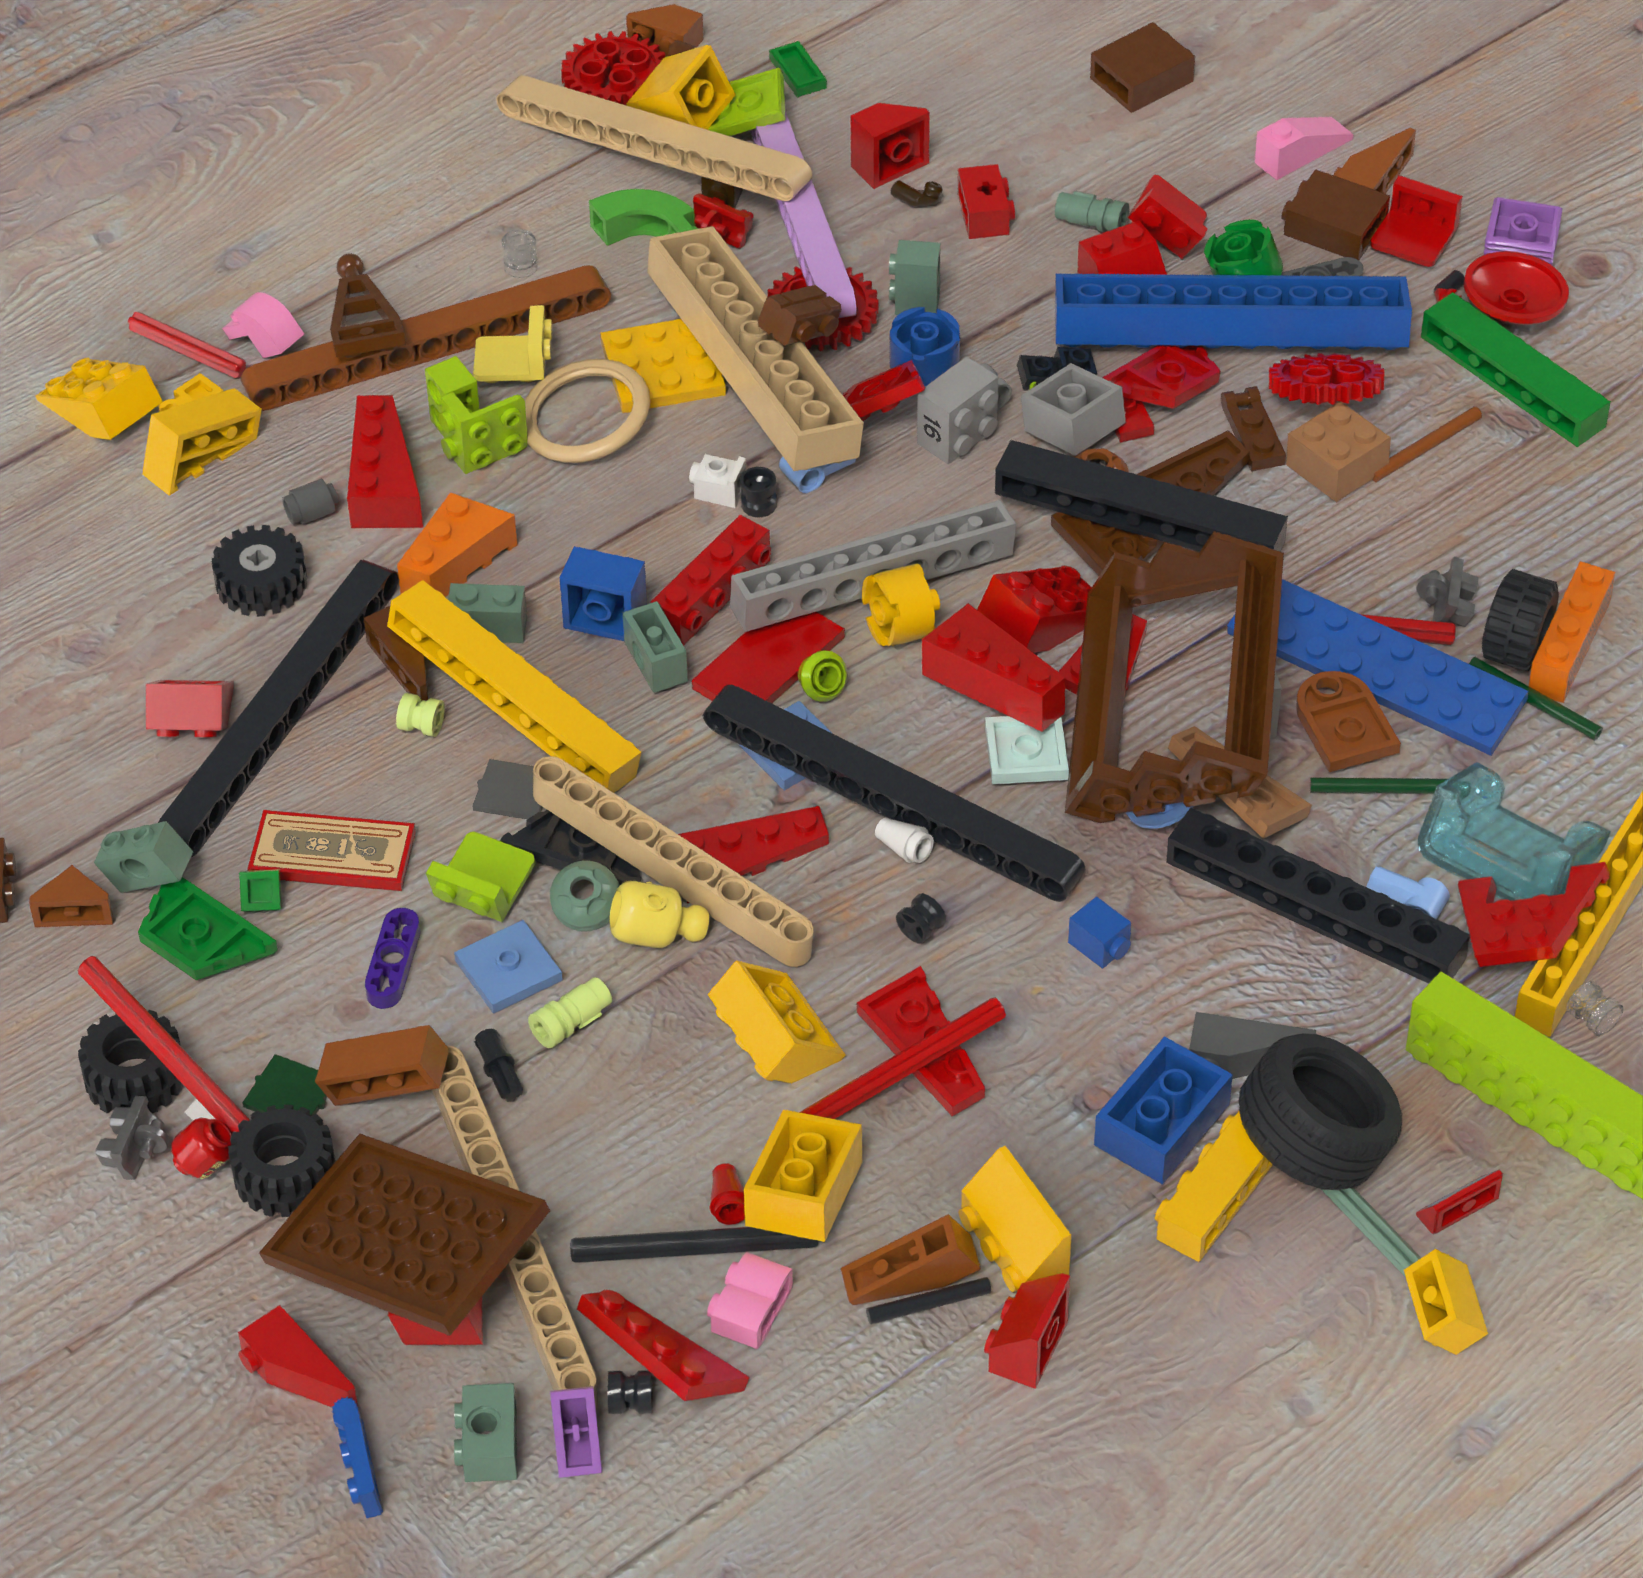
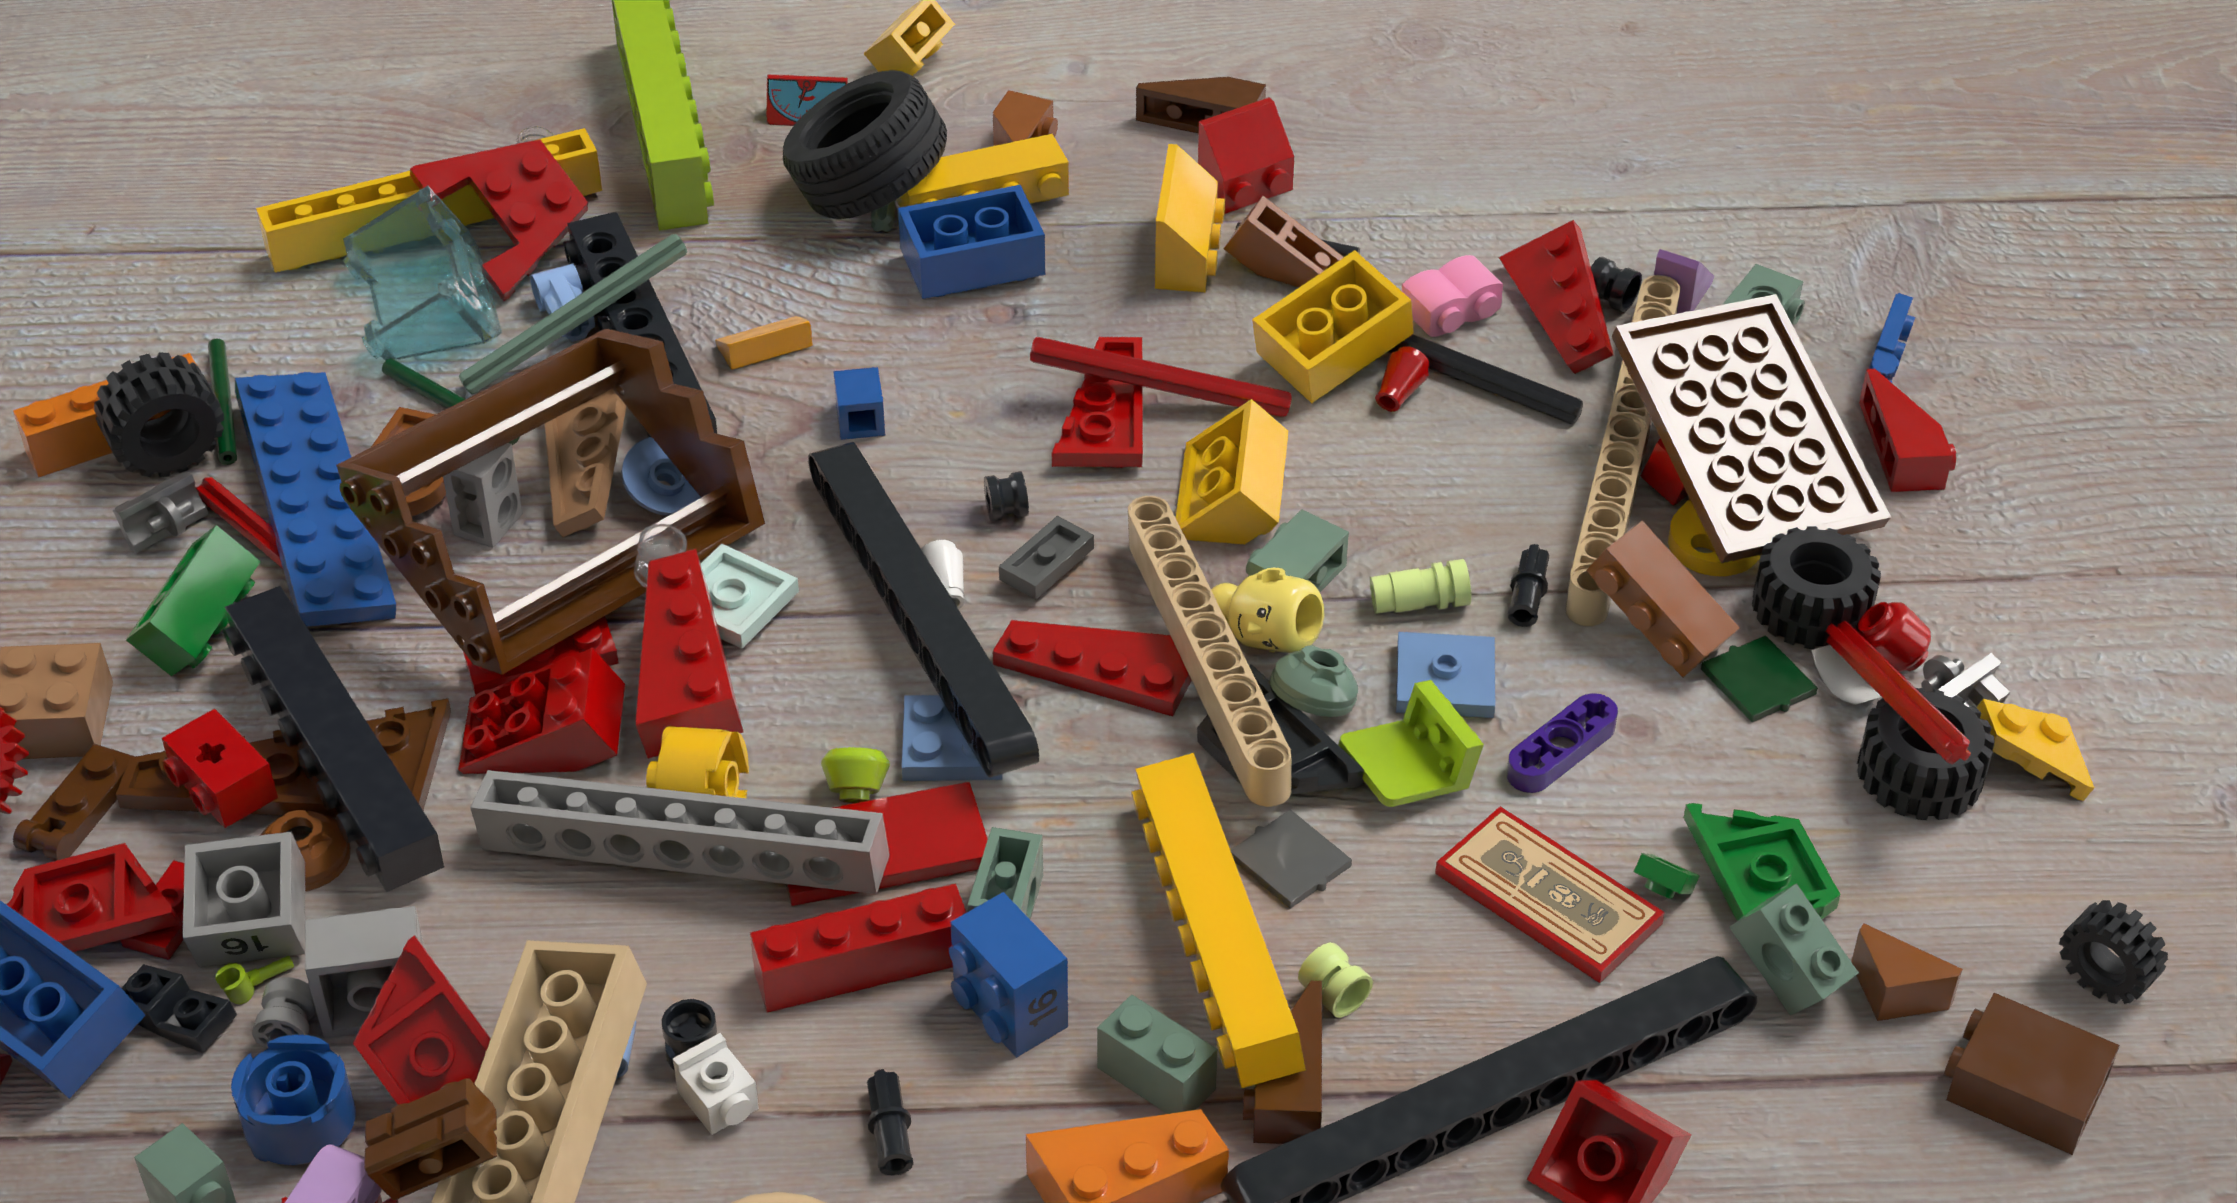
camera: 145 degrees left, 5 degrees down
(60, 1124) = (2038, 744): none -> yellow wing
(609, 516) = (889, 1123): none -> black axle
(672, 980) = (1304, 549): none -> sand green brick
(849, 892) = (1046, 557): none -> dark grey plate
(1075, 705) = (655, 543): none -> clear wheel
(1123, 1398) = (1186, 102): none -> reddish brown slope
(1176, 454) = (218, 768): none -> red brick
(1233, 957) = (765, 342): none -> light orange slope
(1236, 1042) = (847, 264): dark grey slope -> none
(1254, 1268) = (1022, 118): none -> dark orange slope
(1337, 544) = (194, 602): none -> green brick
(1362, 859) = (573, 314): none -> sand green axle

